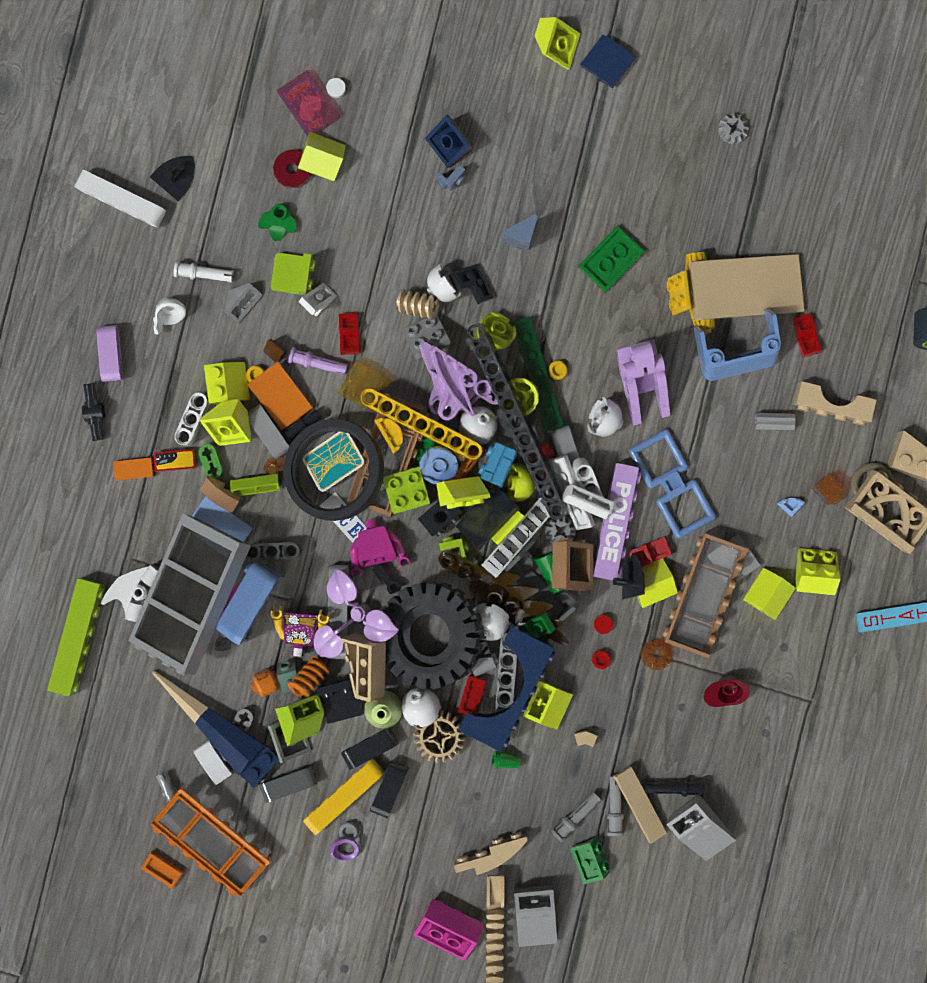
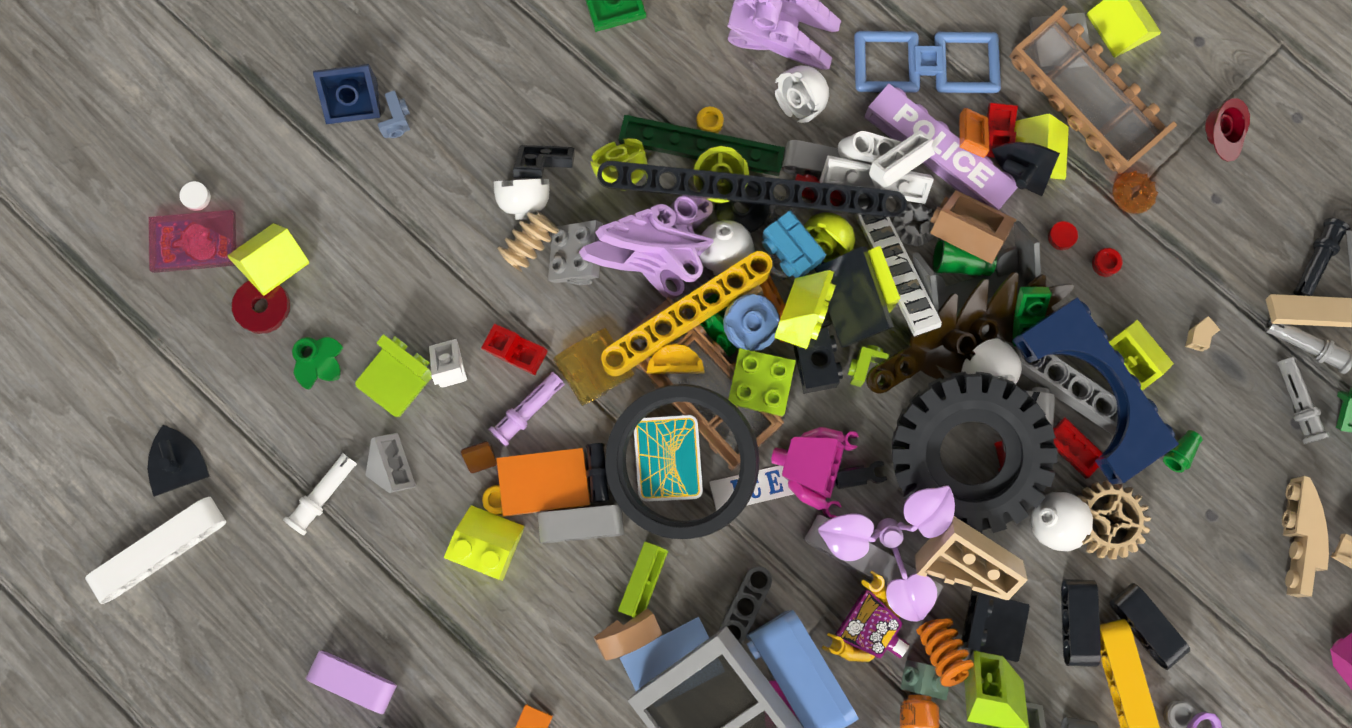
camera: 65 degrees left, 10 degrees down
(168, 312) = (345, 569): white hat -> none
(174, 460) = (547, 674): slope -> none
(184, 425) = (494, 608): white beam -> none
(215, 460) = (578, 616): bright green beam -> none
(228, 423) = (540, 569): neon yellow slope -> none
(271, 466) = (629, 545): clear orange hinge -> none
(390, 705) = (1045, 576): yellowish green cone -> none
(521, 233) = (517, 66): sand blue slope -> none
(636, 536) = (974, 132): none -> orange tile

